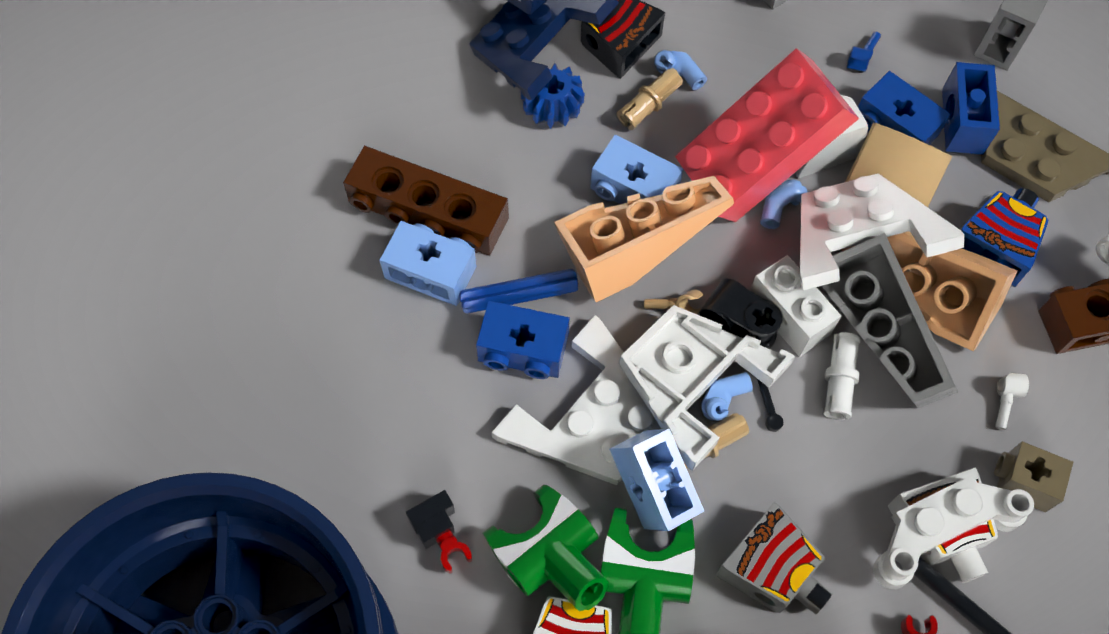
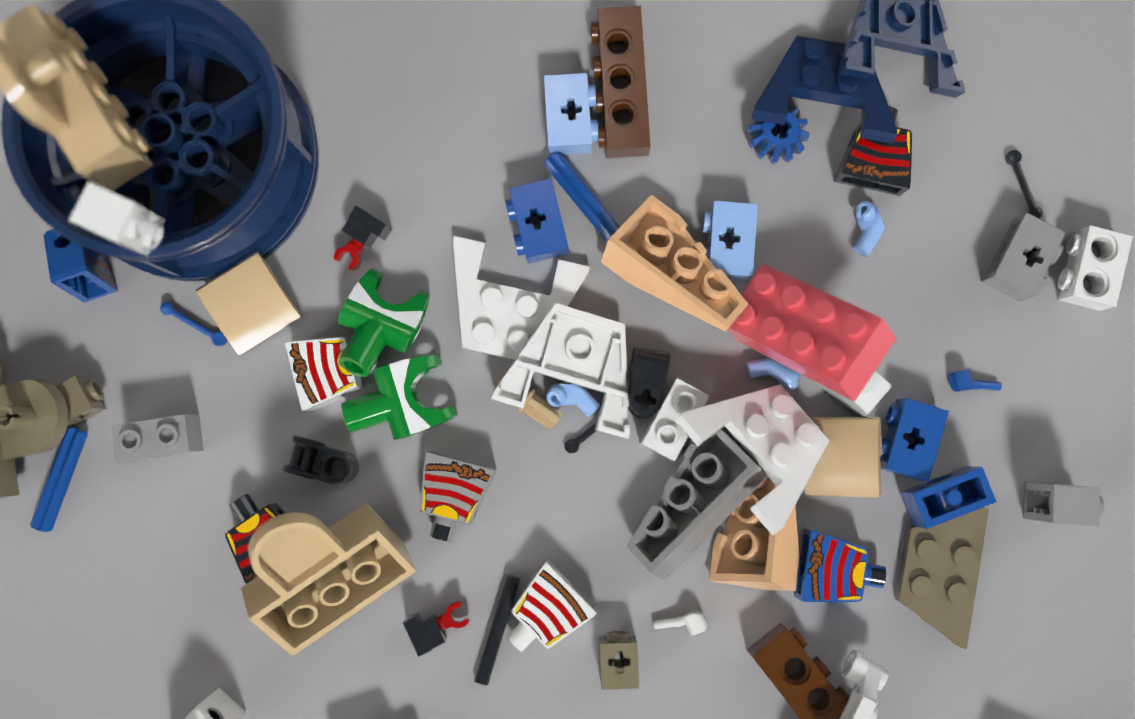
camera: 70 degrees right, 20 degrees up
(649, 98) = (821, 216): tan axle -> none
(657, 480) = (467, 375): light blue brick -> none
(681, 302) = (634, 333): tan hand -> none
(842, 376) = (633, 483): white pin -> none
(944, 518) = (541, 603): white plate -> none

